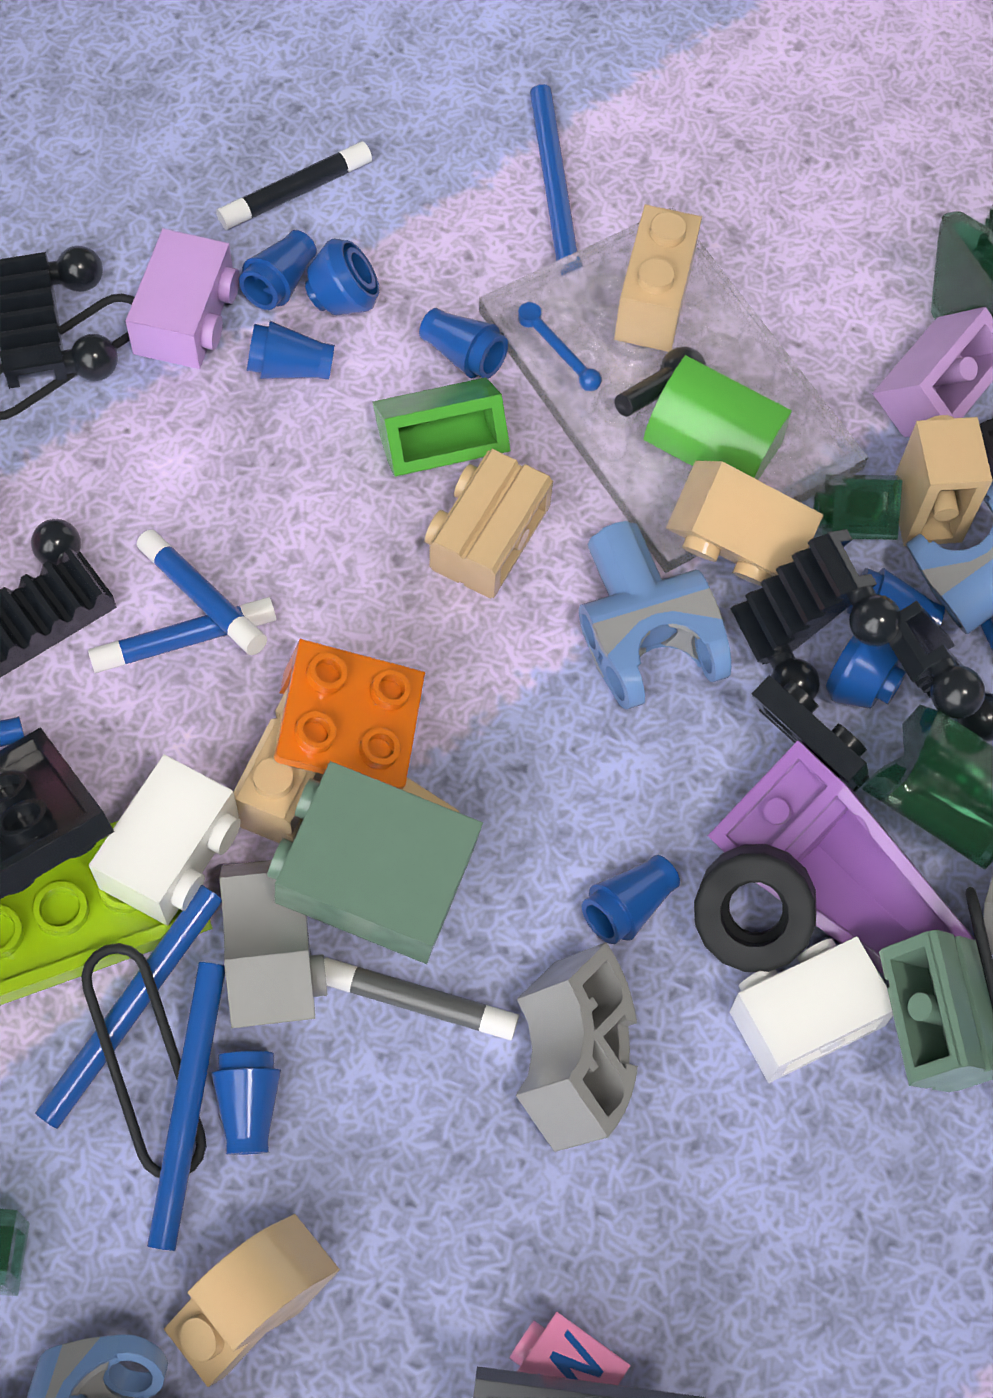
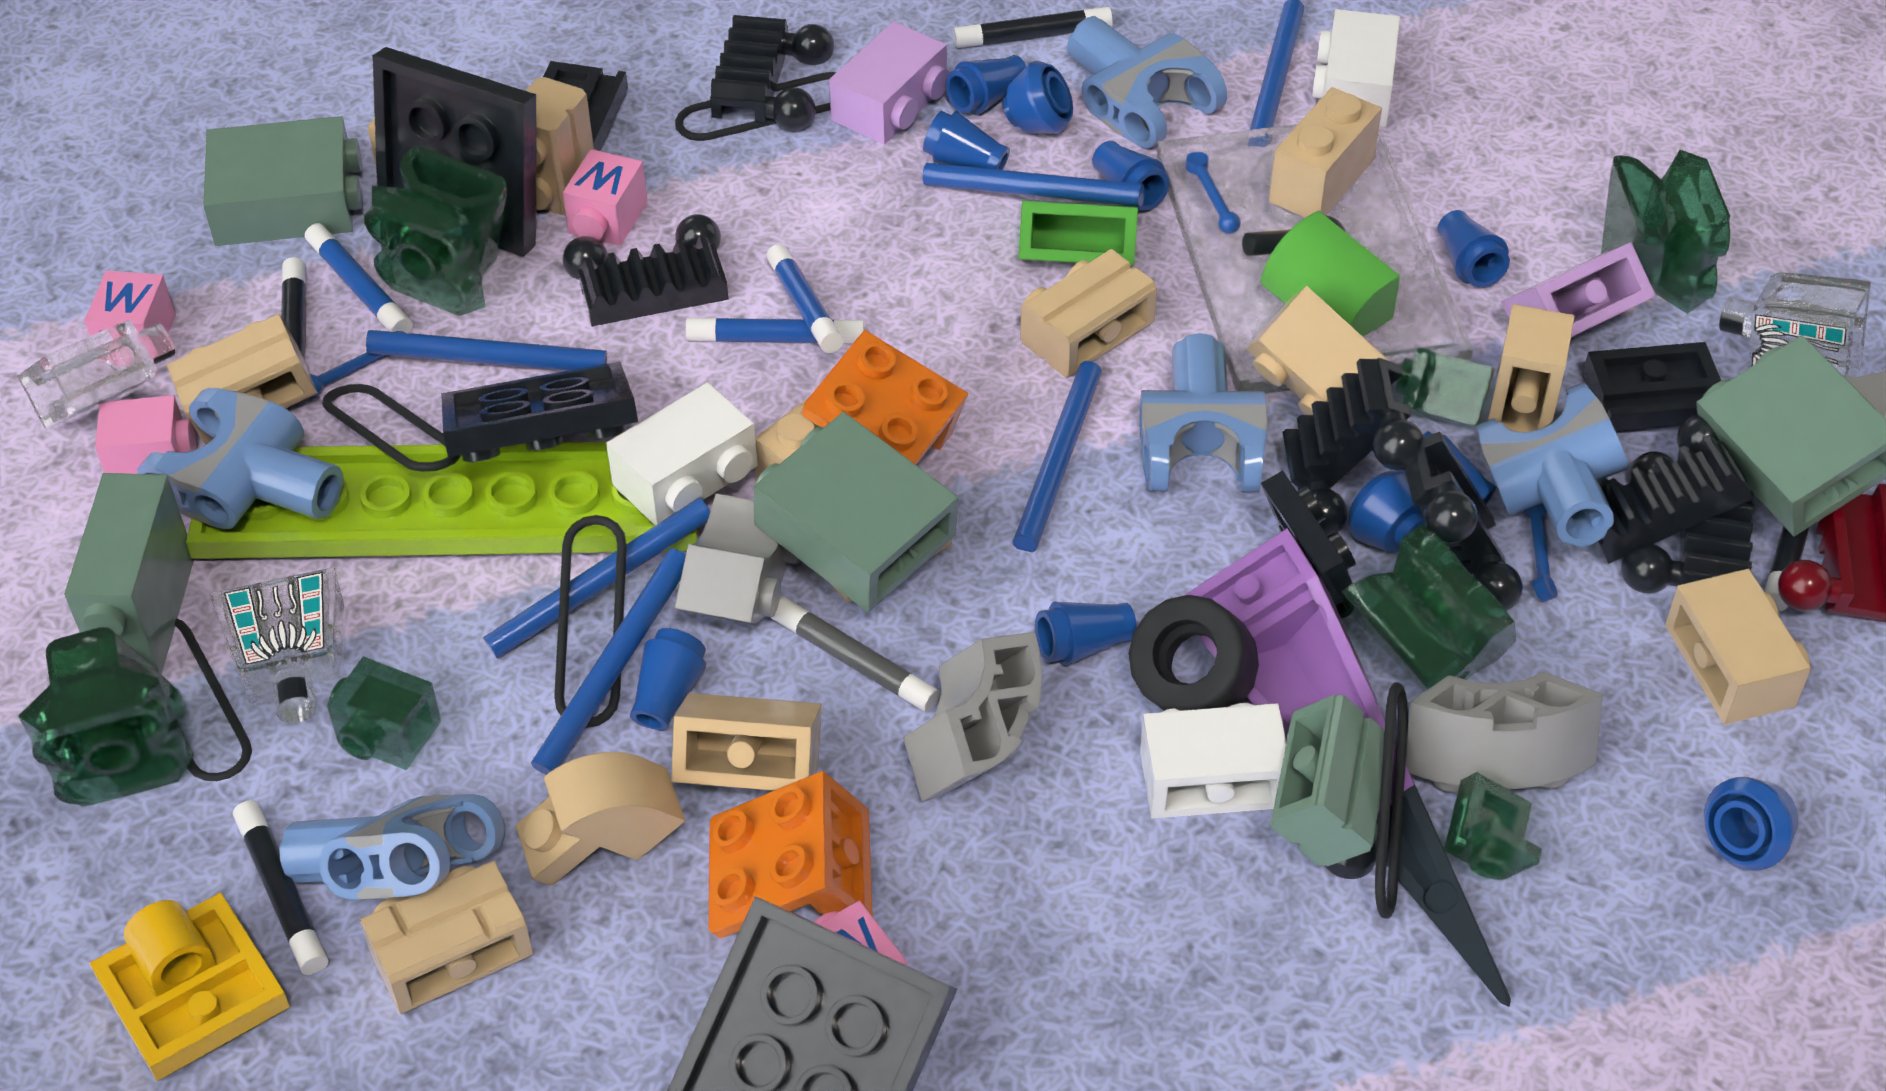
camera: 25 degrees right, 15 degrees down
(366, 1158) = (745, 741): none -> tan brick
(375, 383) = (1034, 184): none -> blue bar
(429, 221) = (1134, 81): none -> medium blue connector
(455, 1272) = (791, 850): none -> orange bracket
(522, 698) = (1057, 457): none -> blue bar
(635, 151) = (1359, 57): none -> white brick
(820, 336) = (1474, 251): none -> blue cone

